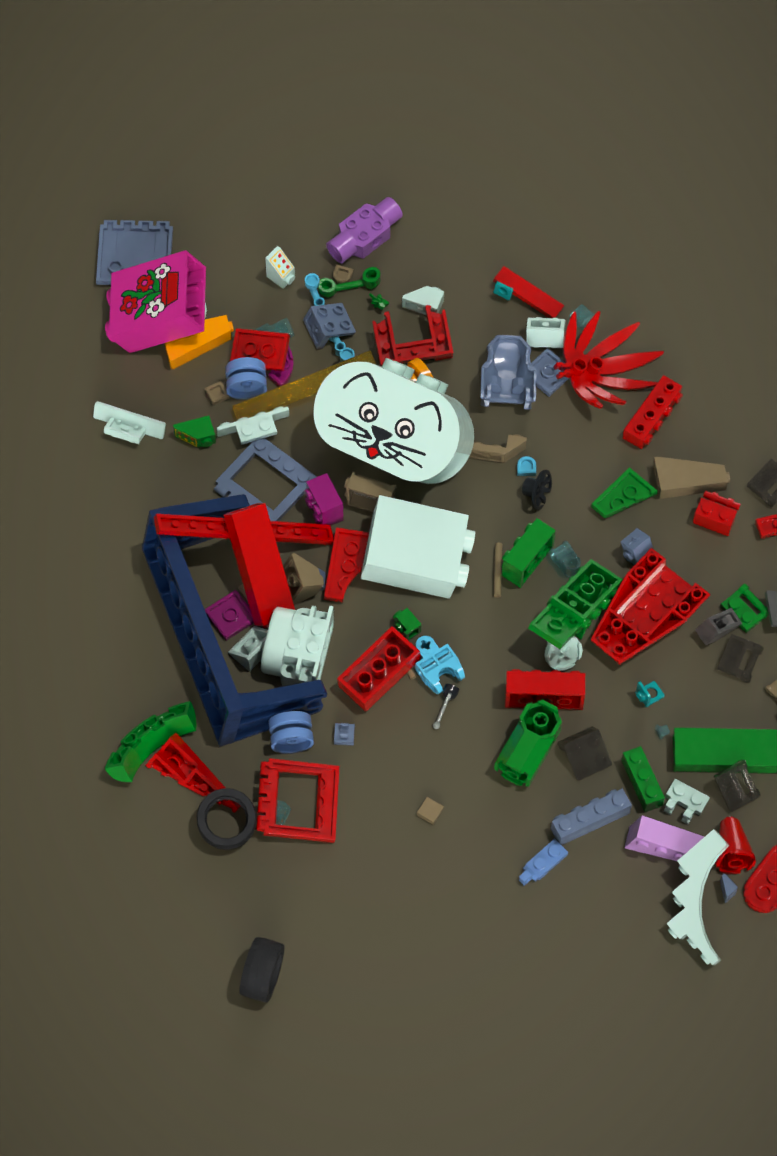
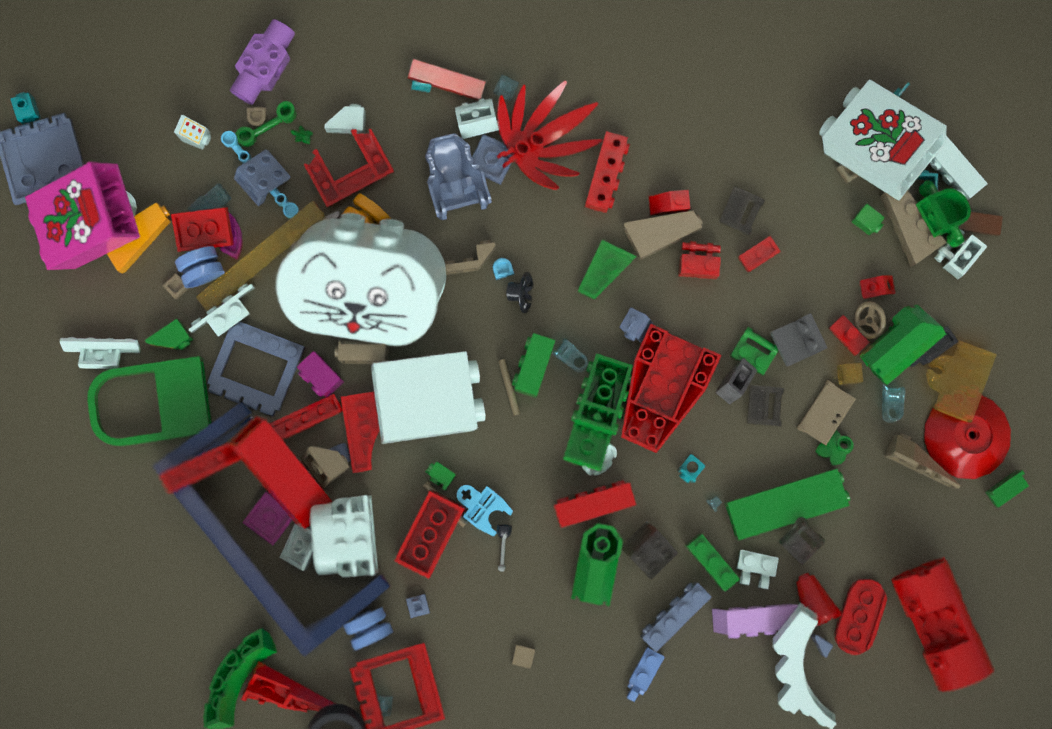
camera: 25 degrees left, 20 degrees up
(136, 207) = (25, 108): none -> teal brick
(188, 477) = (180, 394): none -> green window
(705, 452) = (669, 202): none -> red slope

